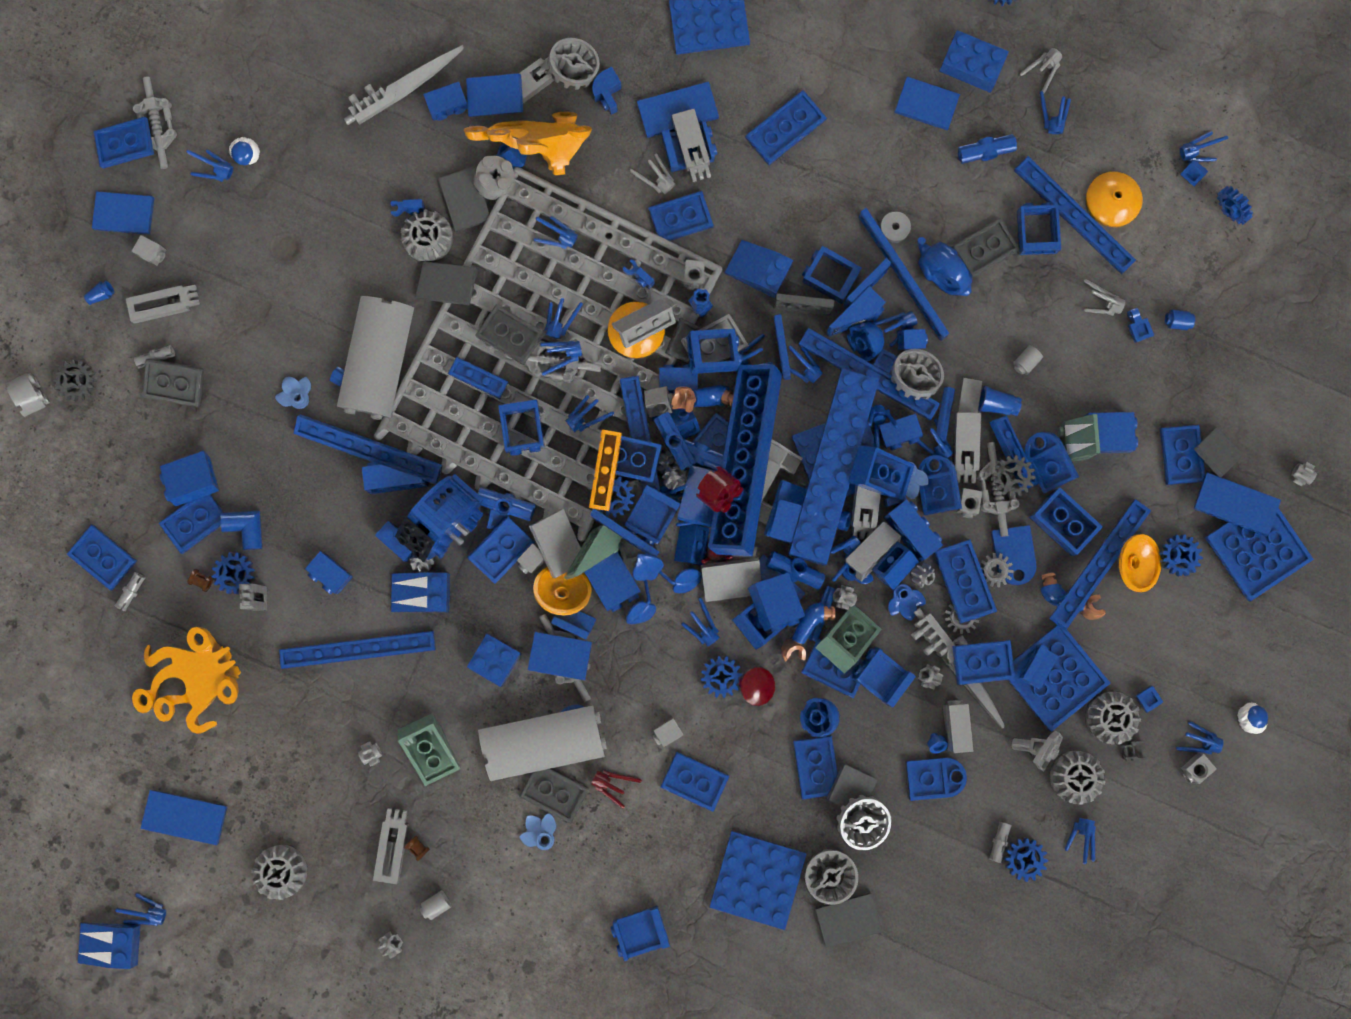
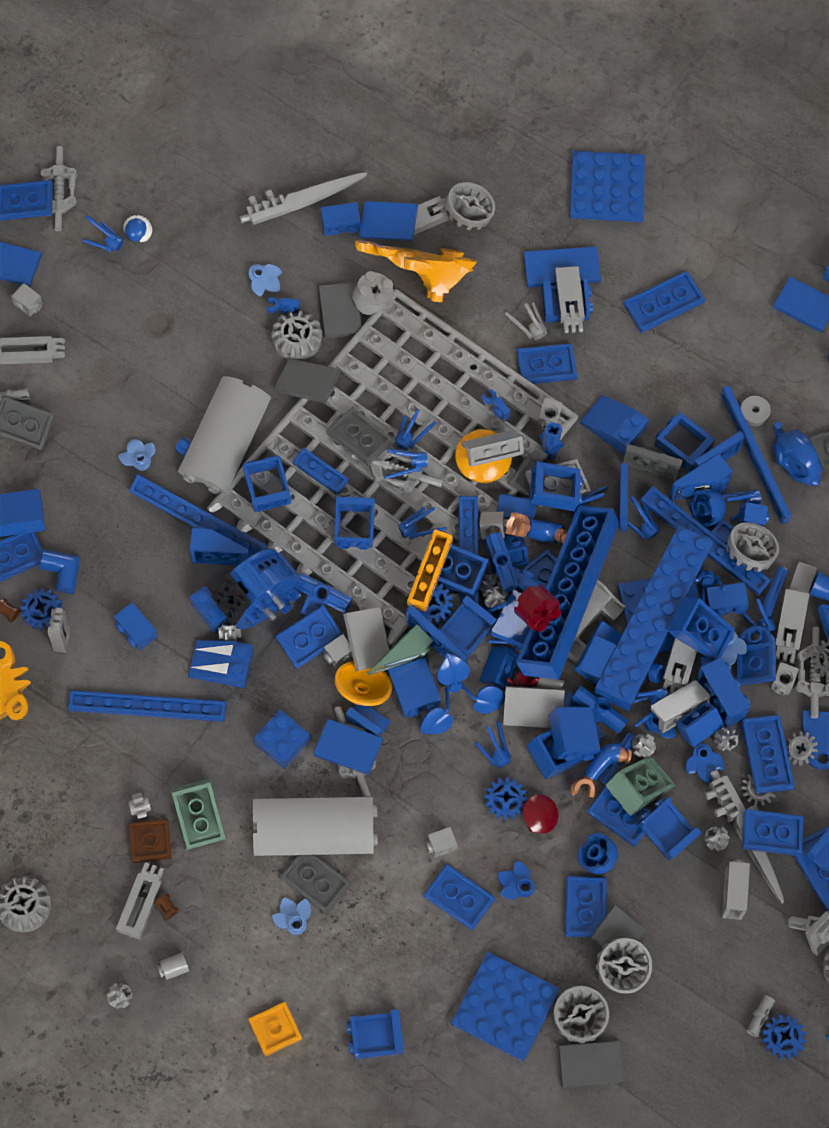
camera: 10 degrees right, 15 degrees down
(385, 182) = (266, 281): none -> medium blue plate
(388, 784) = (150, 841): none -> reddish brown tile
(434, 420) = (268, 501): none -> blue window
(512, 155) = (396, 275): blue panel -> none
(544, 945) = (275, 1028): none -> light orange tile
(567, 236) = (433, 358): blue plant -> none
(602, 781) = (368, 876): dark red plant -> none
(605, 85) = (496, 232): blue brick -> none
(743, 756) = (514, 880): none -> blue plate
(933, 778) = (702, 940): blue tile -> none
(937, 743) = (712, 905): blue tile -> none

